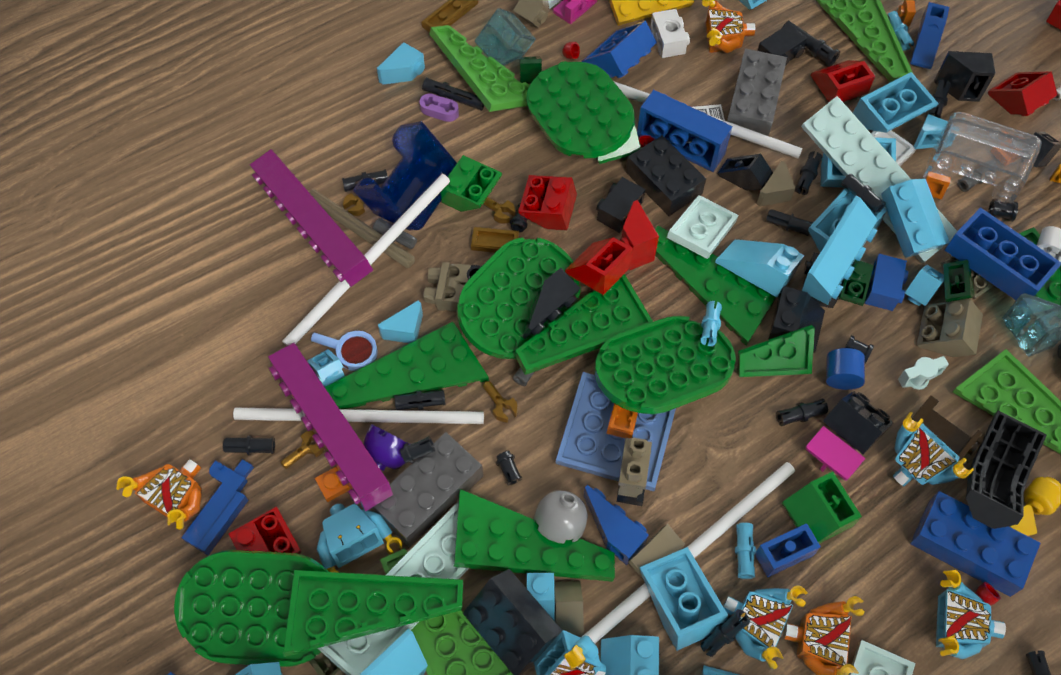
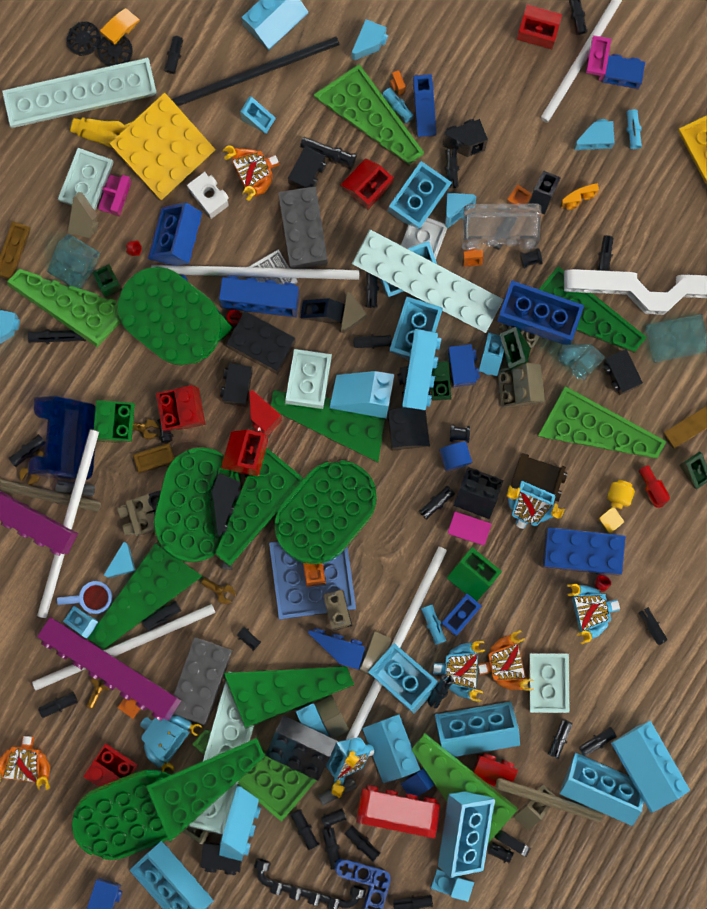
camera: 25 degrees left, 20 degrees up
(221, 508) = (63, 758): blue piece -> none
(384, 448) = (157, 665): dark purple cylinder -> none
(417, 449) = (182, 661): black pin -> none
(439, 107) = (50, 359): medium lavender beam -> none
(561, 516) = (301, 660): light grey cylinder -> none
(711, 323) = (346, 463): medium azure pin -> none
(779, 356) = (404, 467): green wing -> none
(864, 192) = (420, 304): black pin -> none
(914, 217) = (467, 306): medium azure slope -> none
(922, 372) = (511, 434): light aqua piece -> none
(1002, 471) = (586, 494): black piece -> none
(1024, 92) = (517, 130): red slope -> none

